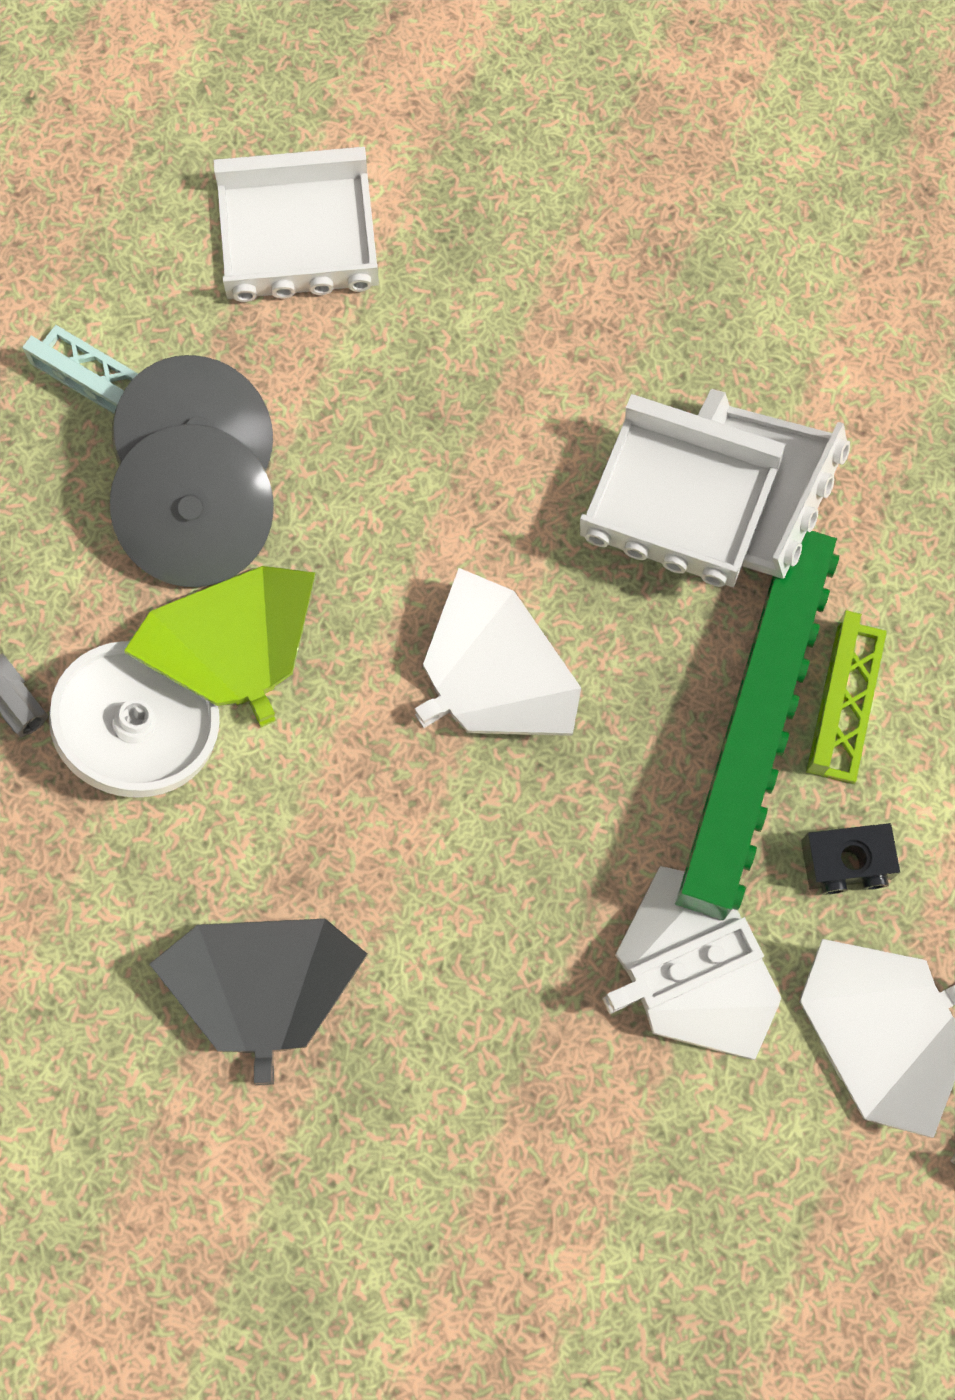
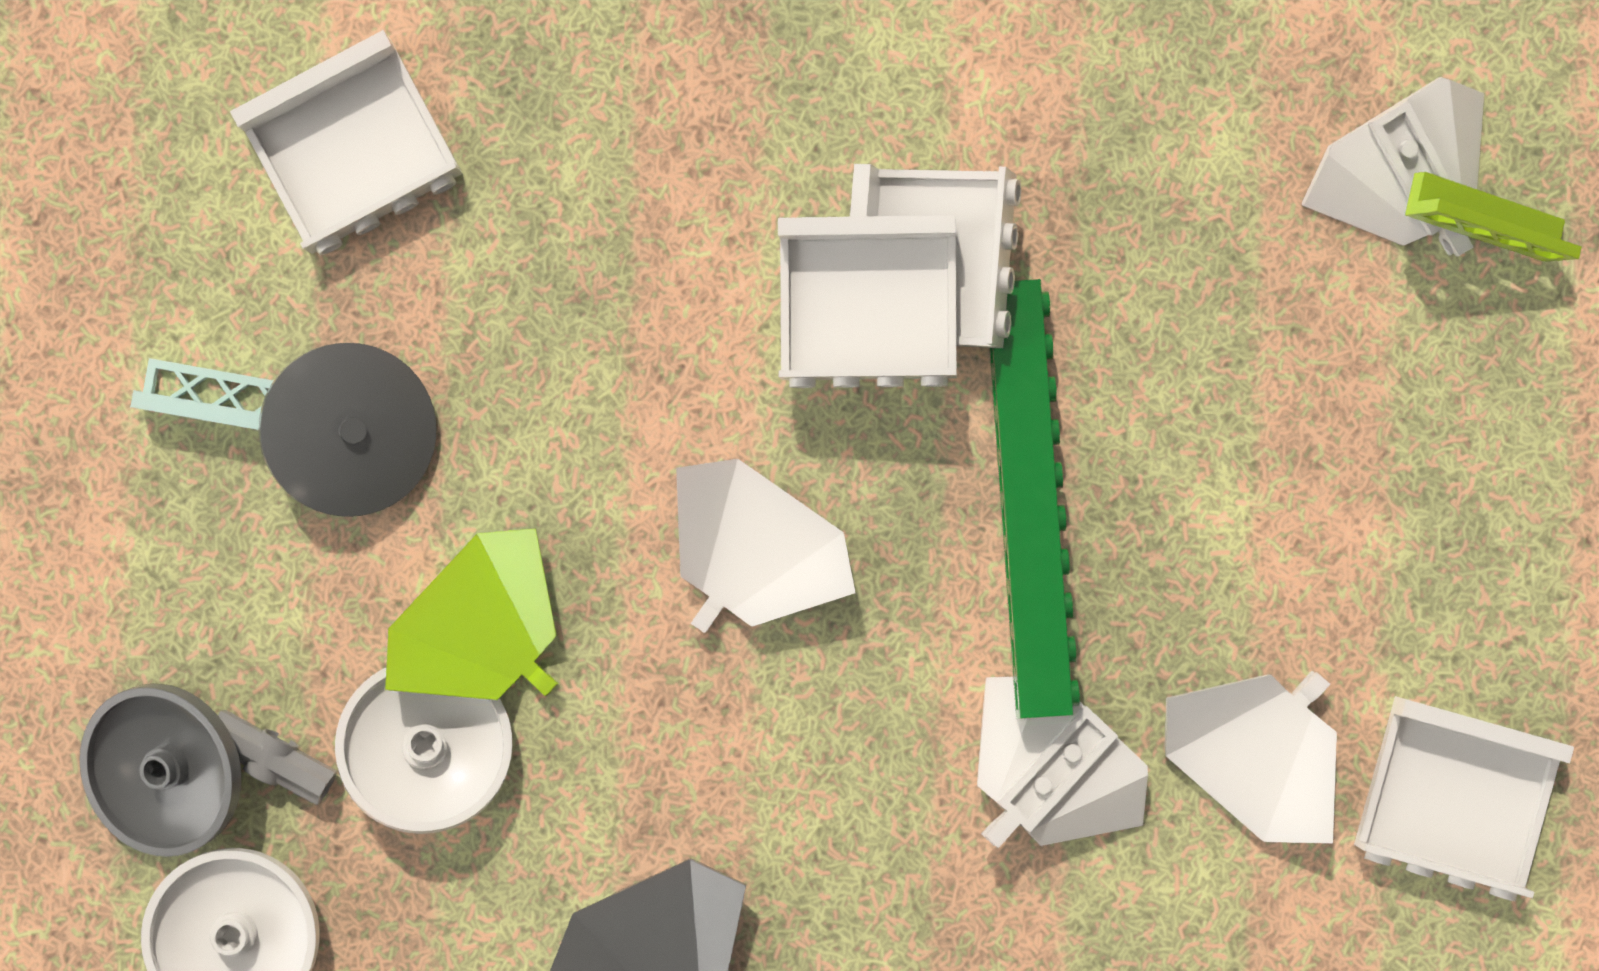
camera: 20 degrees left, 15 degrees up
(191, 505) = (381, 507): dark grey dish -> none
(835, 693) = (1093, 437): lime fence -> none
(870, 844) = (1191, 591): black brick -> none

